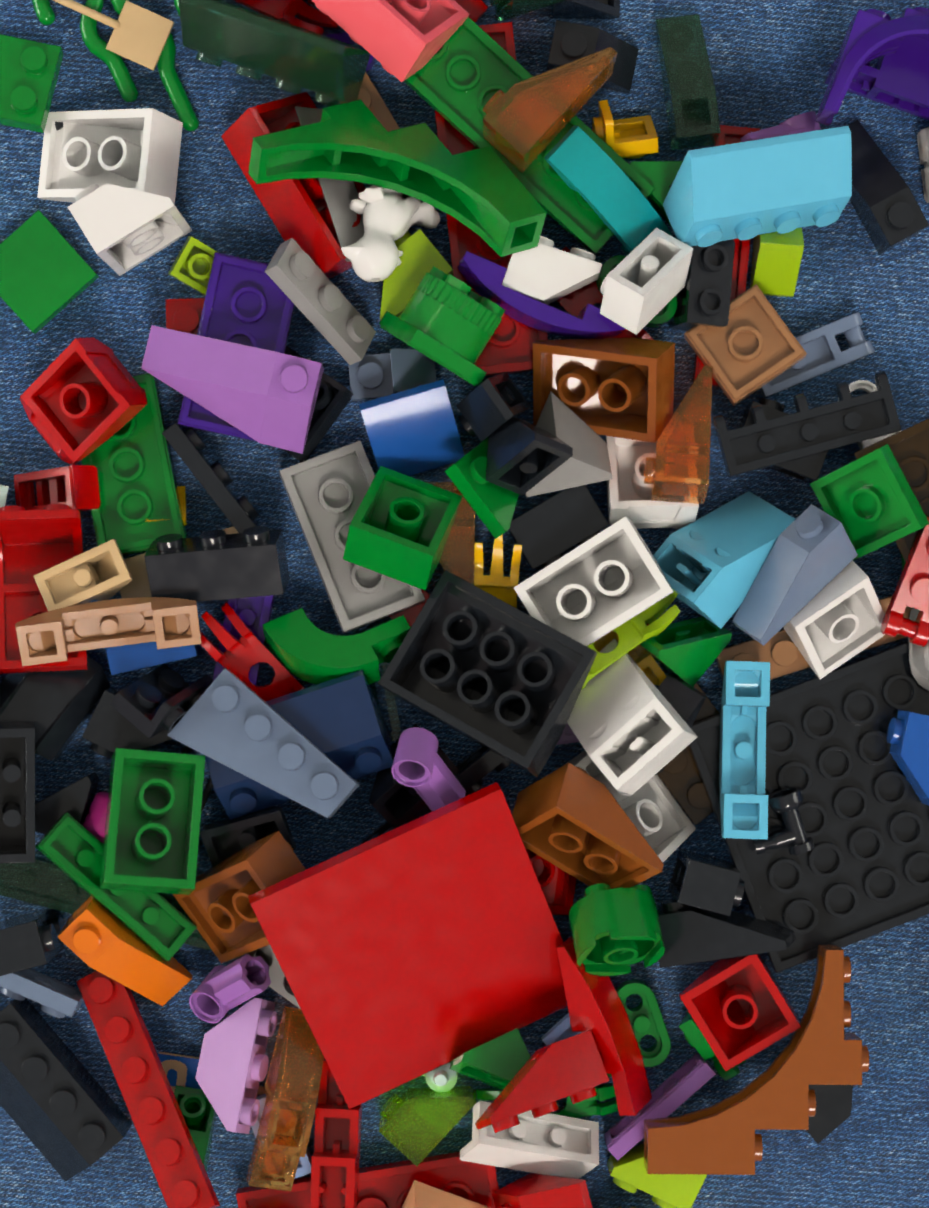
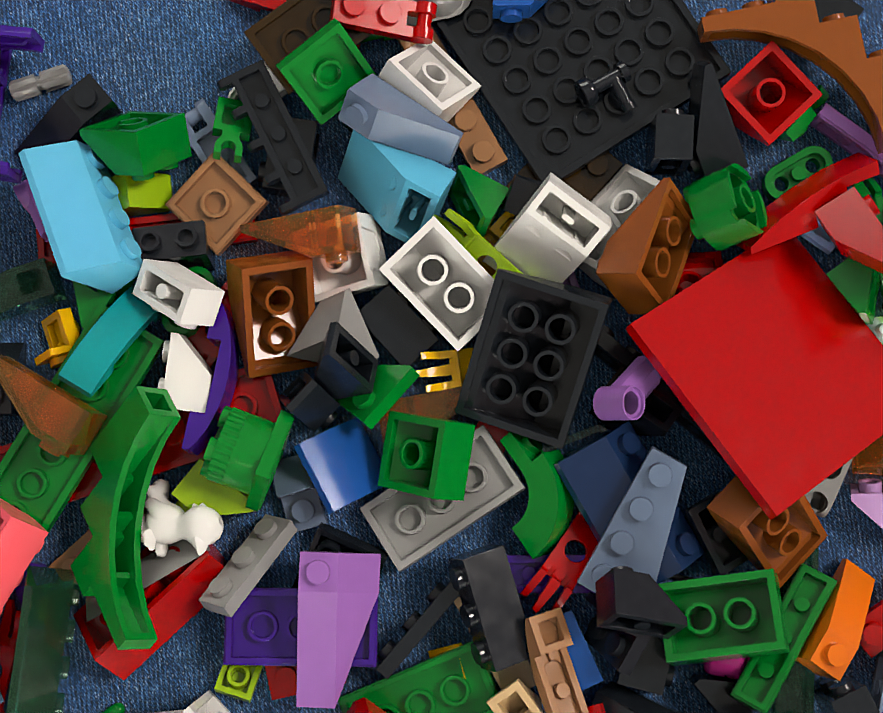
camera: 95 degrees left, 5 degrees down
(185, 727) = (636, 604): none -> black slope
(229, 987) = (847, 524): medium lavender piece -> none
(744, 750) = (554, 134): medium azure slope -> none
(827, 375) = (229, 130): none -> green plate
(835, 268) = (140, 142): none -> green slope

